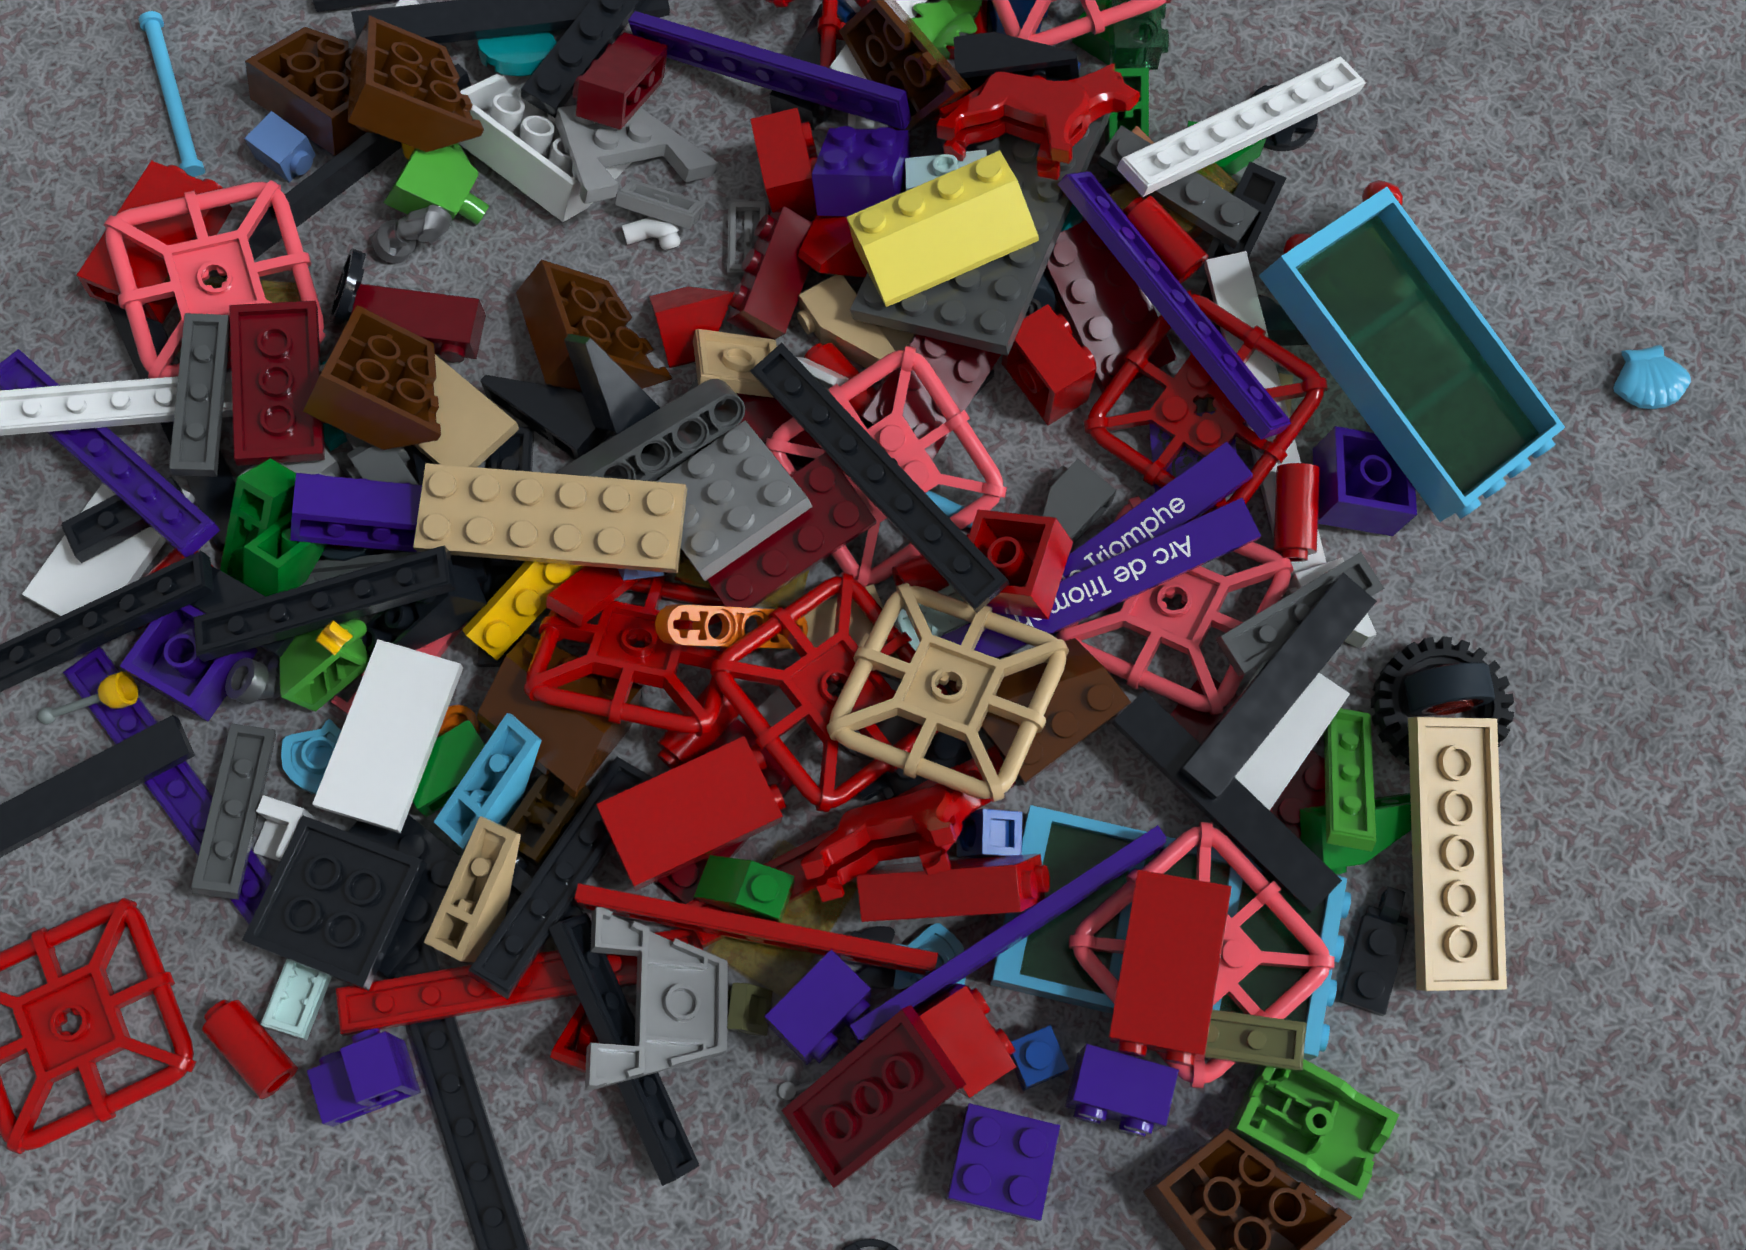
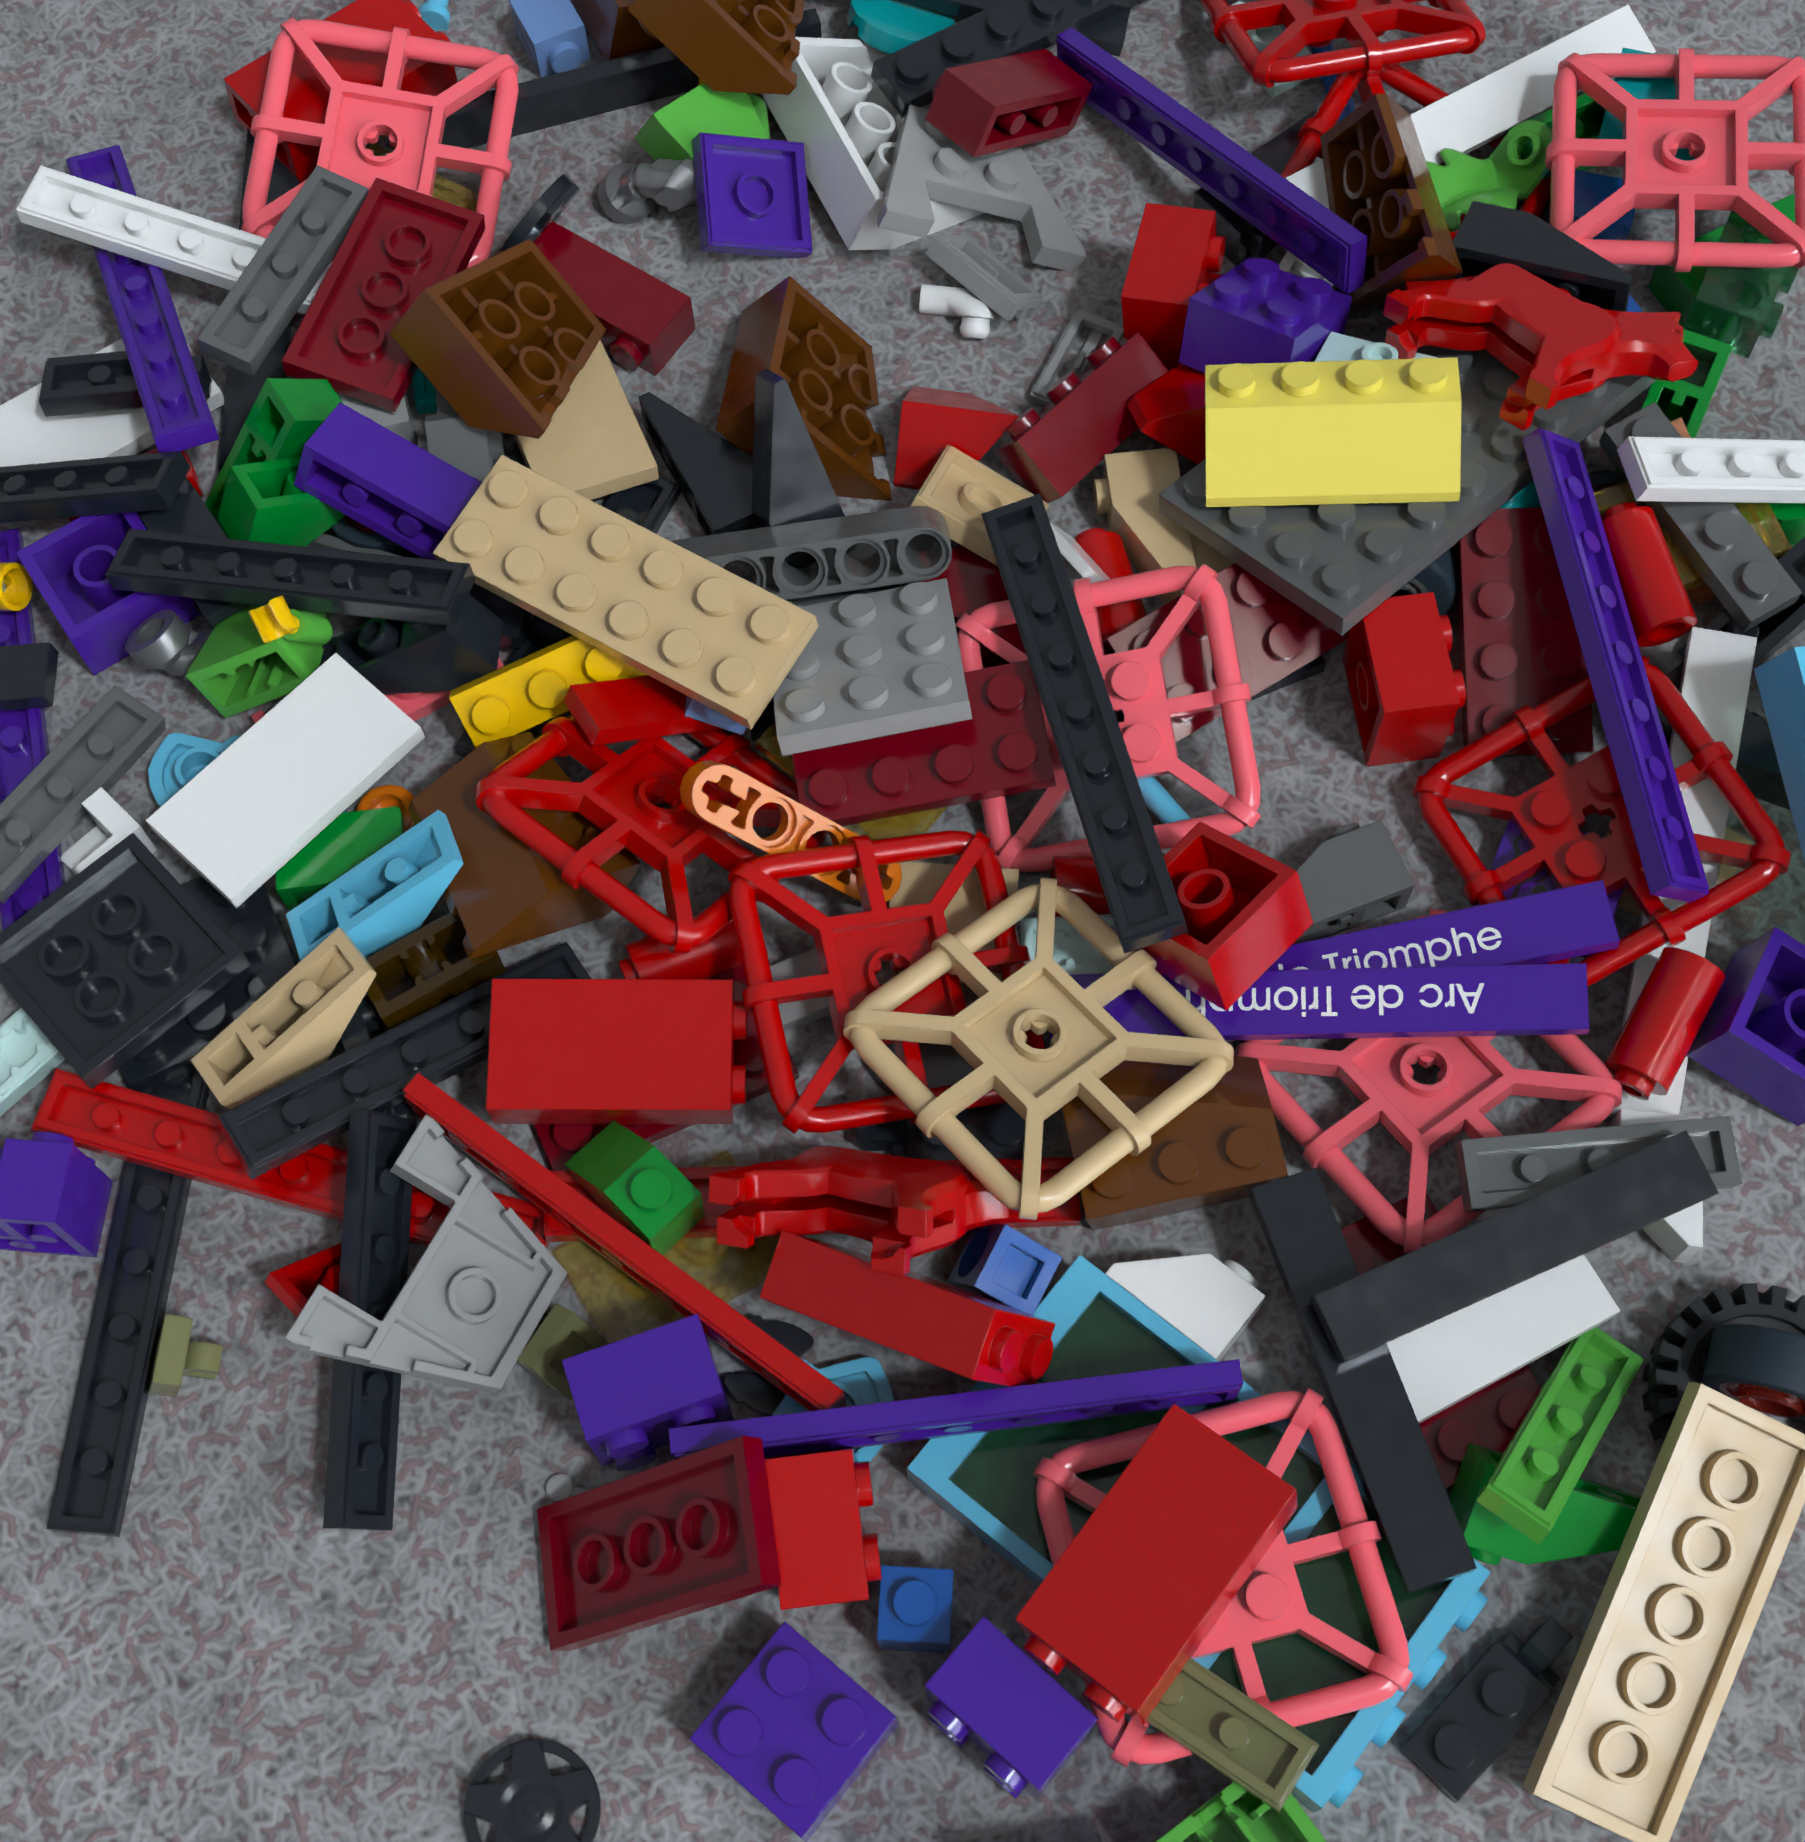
camera: 30 degrees right, 5 degrees down
(483, 212) = (752, 196): none -> dark purple tile
(511, 1128) = (180, 1358): none -> olive tile
(1108, 796) = (1195, 1295): none -> white slope

